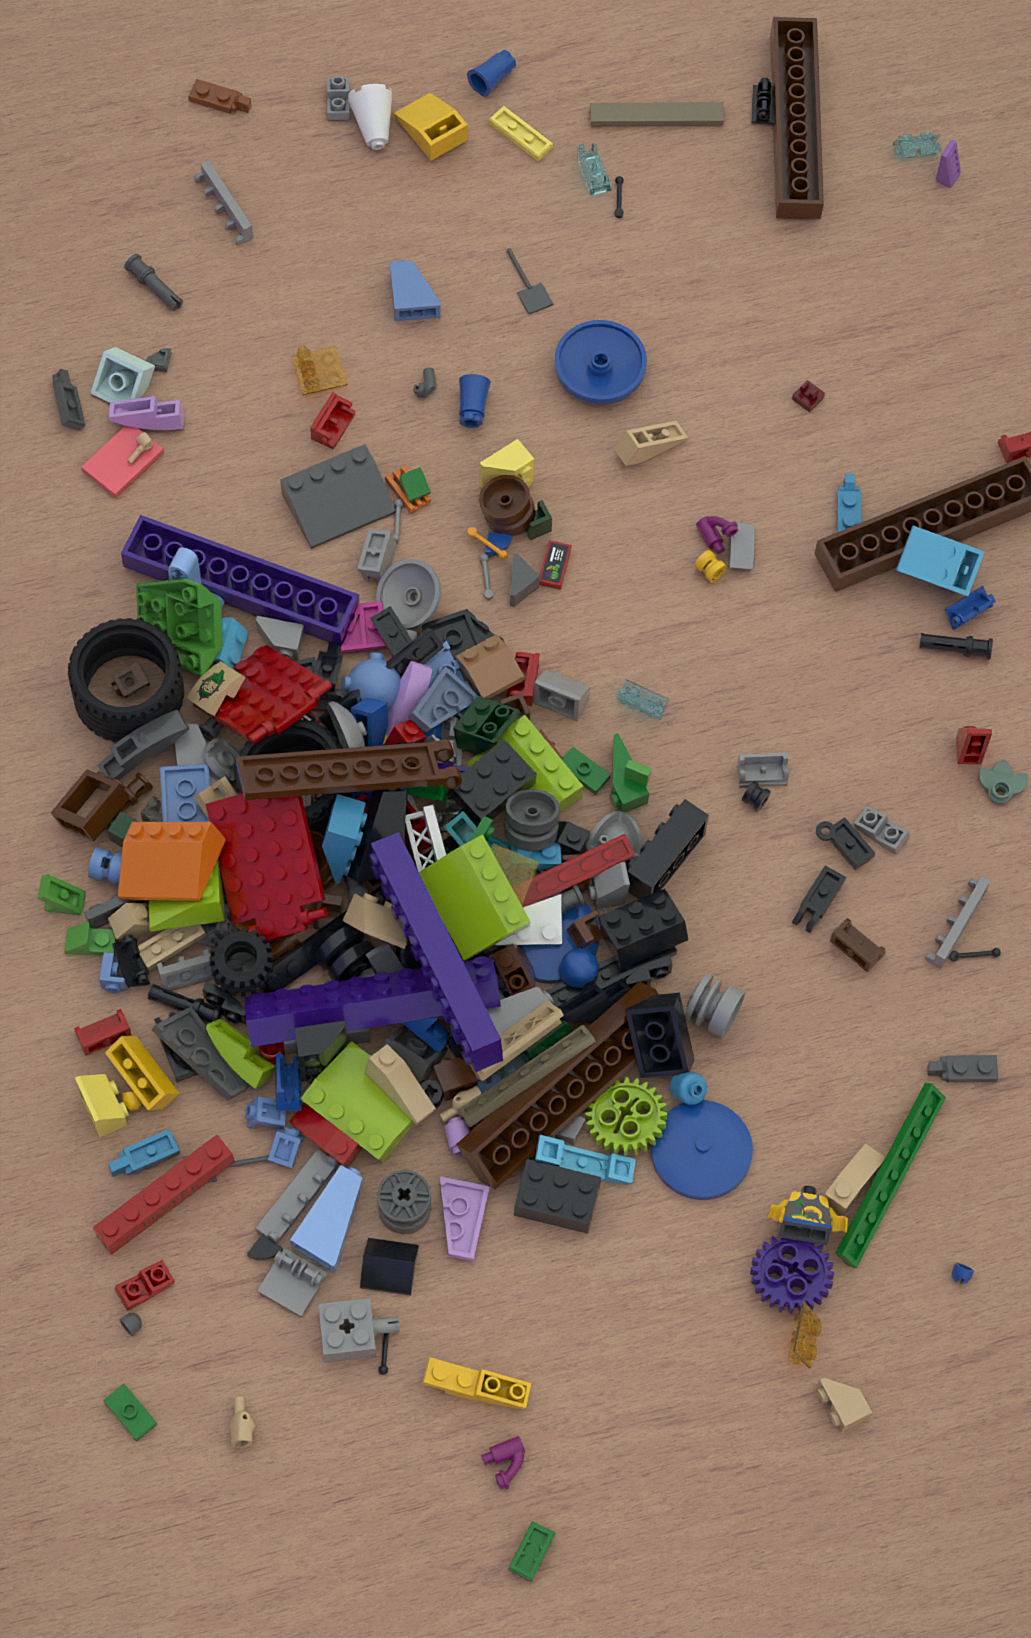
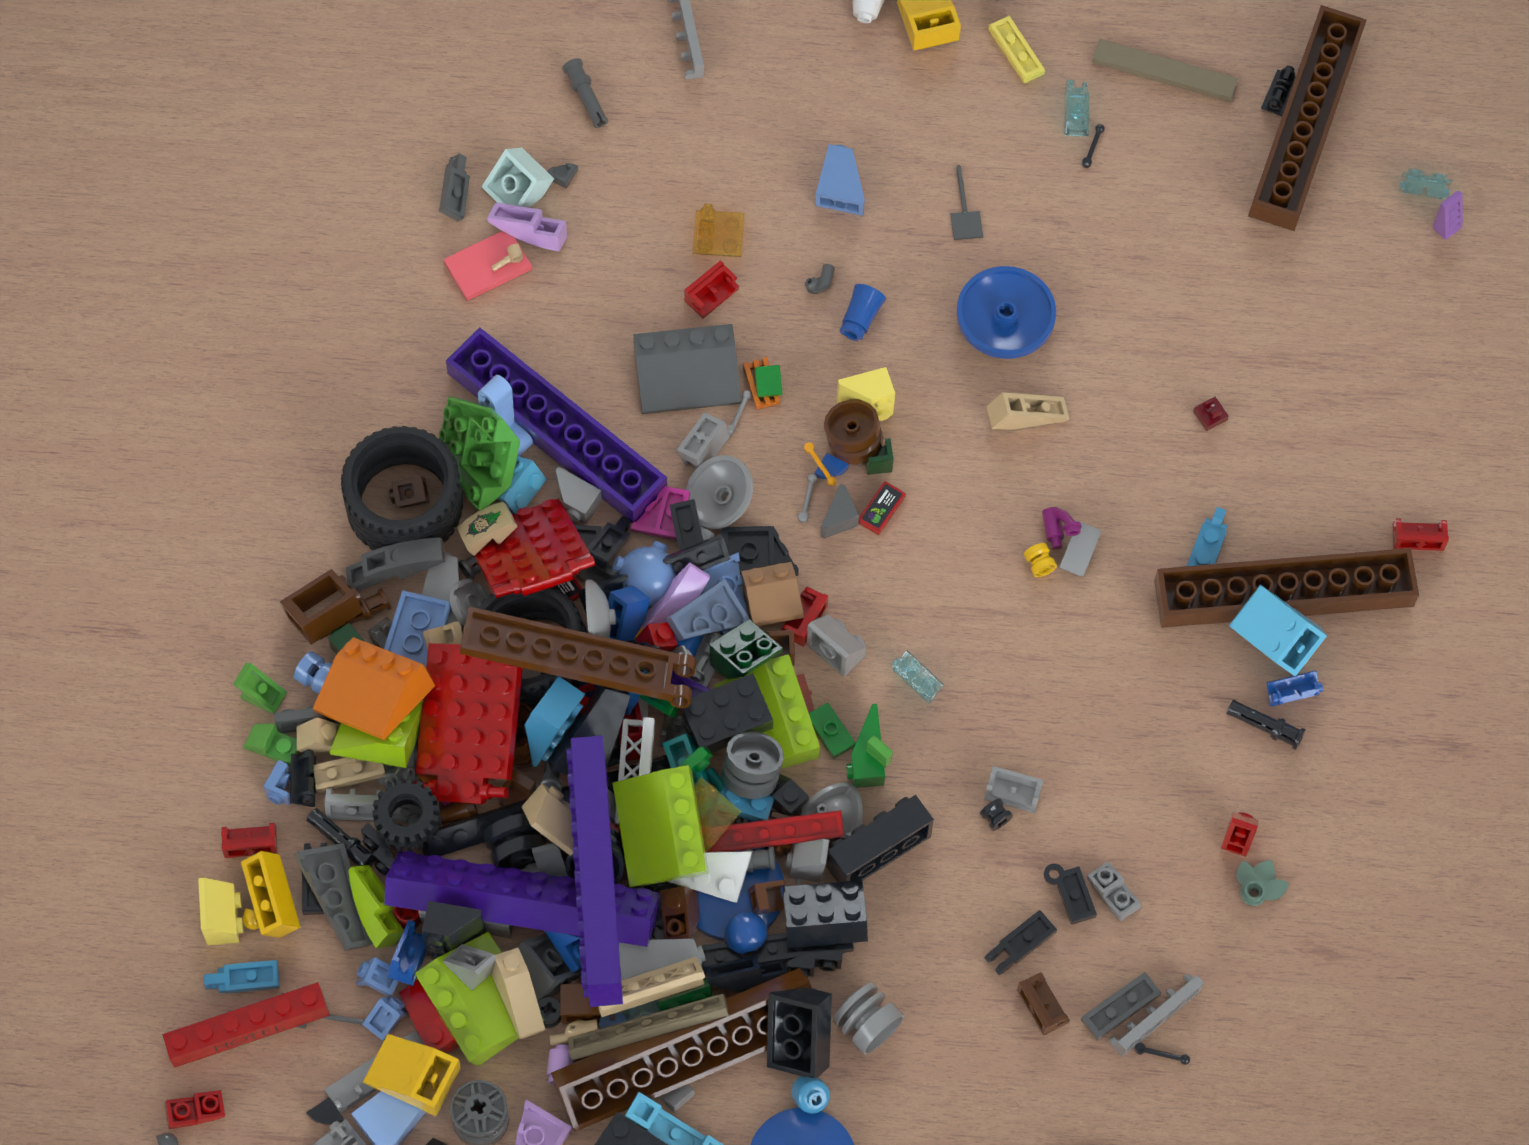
camera: 20 degrees right, 0 degrees up
(333, 1185) = (413, 1073): none -> yellow slope
(349, 1073) = (470, 964): none -> light grey slope
(646, 1125) = (752, 1118): lime gear -> none
(925, 925) = (1121, 1006): none -> dark grey plate

